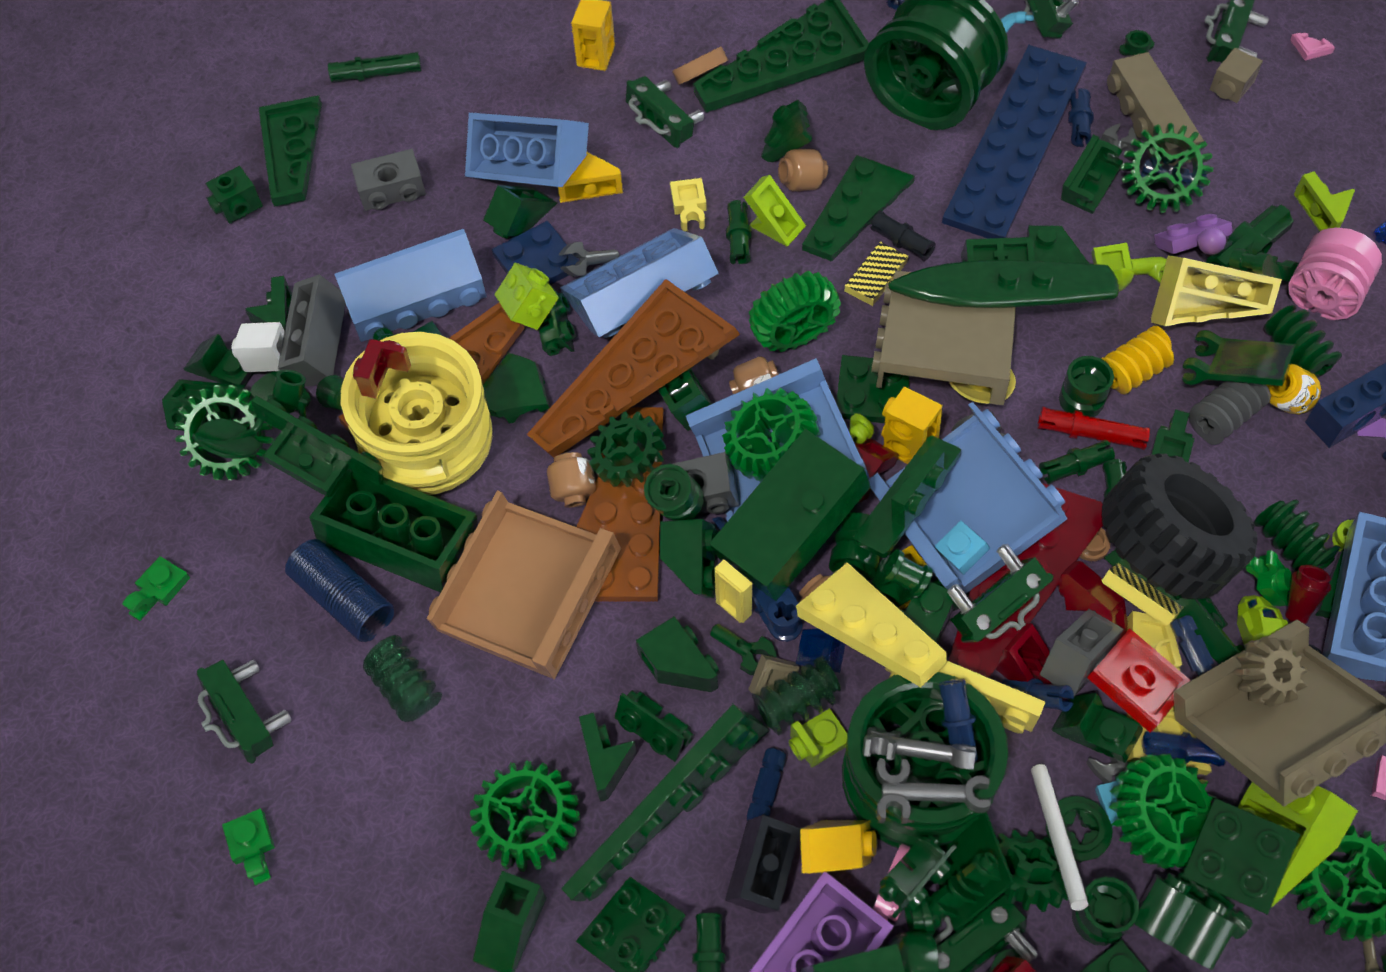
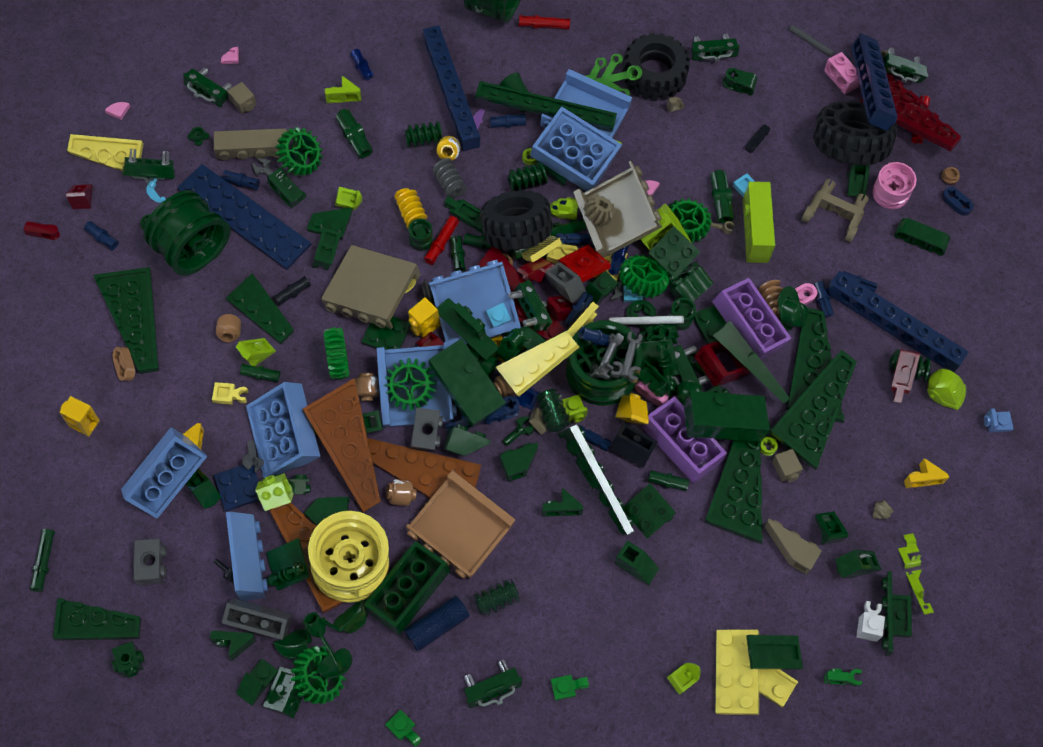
camera: 85 degrees left, 5 degrees up
(259, 346) = (261, 649): white brick -> none
(309, 453) = (360, 618): dark green bracket -> none
(329, 392) = (305, 608): dark green cone -> none
(376, 360) = (334, 562): dark red bracket -> none
(496, 802) = (593, 533): green gear -> none
(626, 449) = (404, 452): dark green gear -> none
(639, 715) = (556, 476): dark green hinge -> none
(660, 111) = (150, 394): dark green piece -> none
(682, 494) = (438, 435): dark green wheel -> none
(733, 591) = (494, 424): light yellow tile -> none
(787, 131) = (198, 327): dark green wing -> none
(860, 428) = (416, 341): lime arm -> none
(877, 270) = (311, 311): tile -> none
(1008, 283) = (350, 248): dark green piece -> none
(1151, 266) = (354, 179): lime arm -> none
(1206, 232) = (340, 154): medium lavender plate -> none
(1208, 291) = (382, 161): light yellow wedge -> none
(1239, 361) = (429, 162): dark green flag -> none
(1262, 264) = (377, 131): dark green plate -> none
(1272, 577) = (547, 193): green plate -> none
(1307, 591) = (556, 183): dark red cone -> none
(1335, 273) = (391, 104): bright pink wheel -> none

